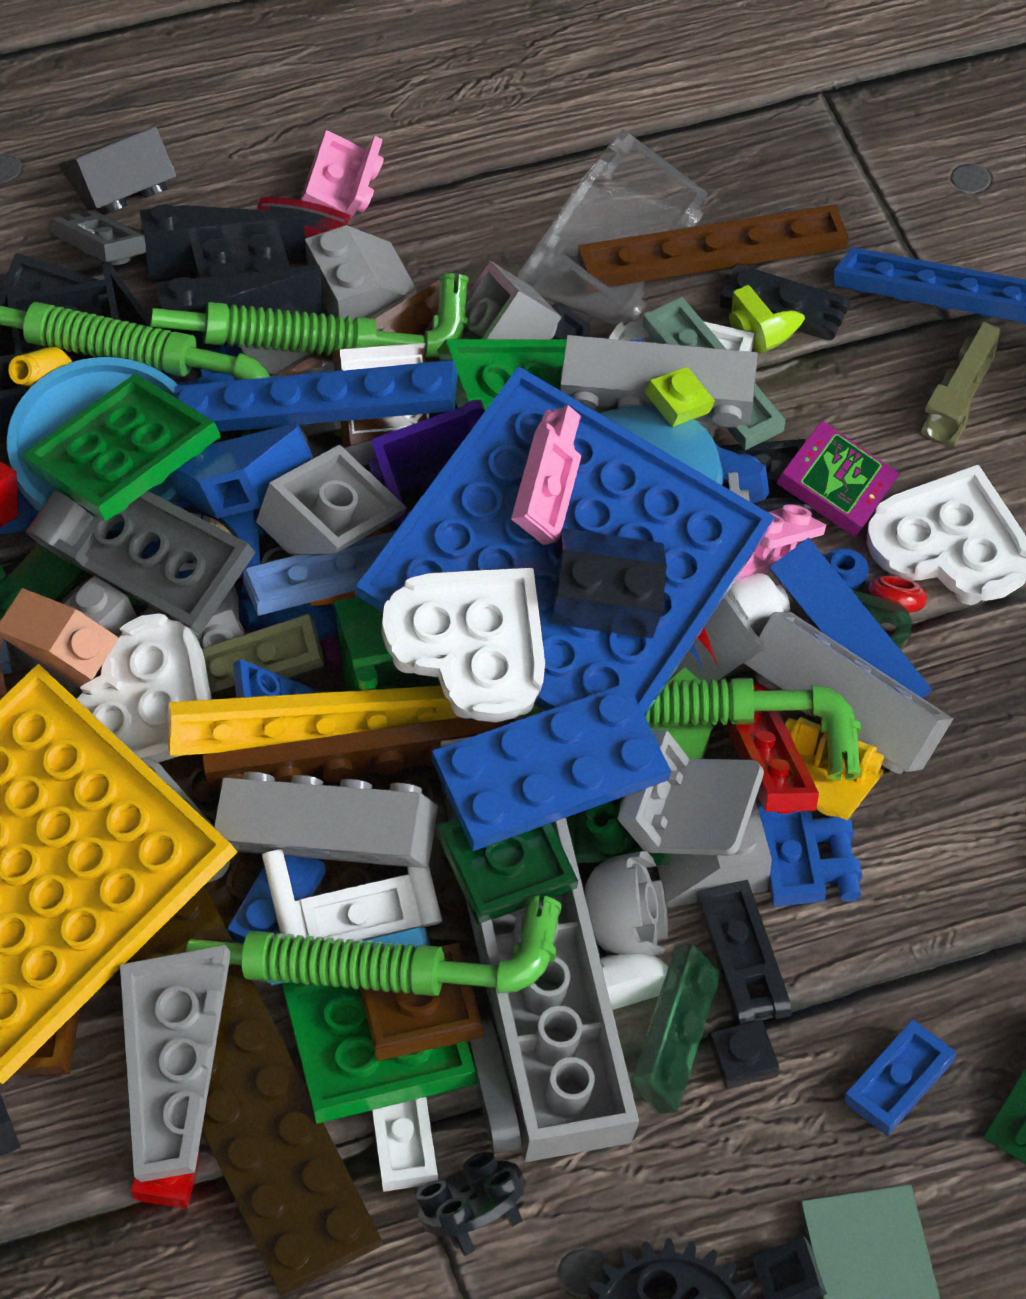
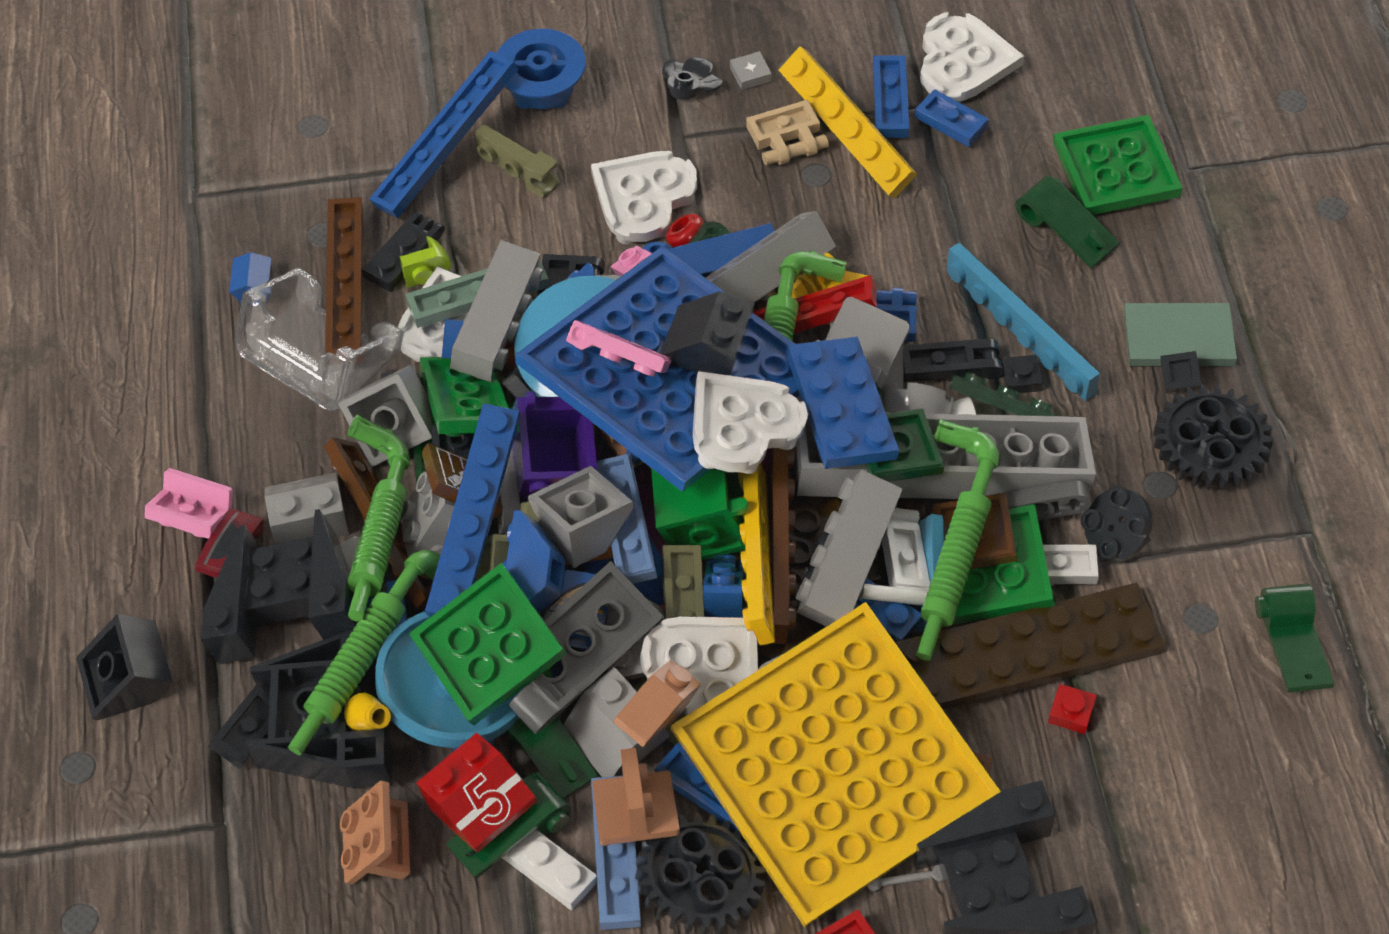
camera: 80 degrees left, 0 degrees up
(99, 236) = (206, 681): dark grey hinge -> none
(170, 1047) = (996, 674): light grey wing -> none
(679, 396) = (532, 288): lime plate -> none
(697, 158) = (248, 272): none -> blue piece
(820, 1050) = (1022, 322): none -> dark azure plate
(838, 478) = (584, 240): tile -> none
(899, 1077) = (1051, 295): blue plate -> none

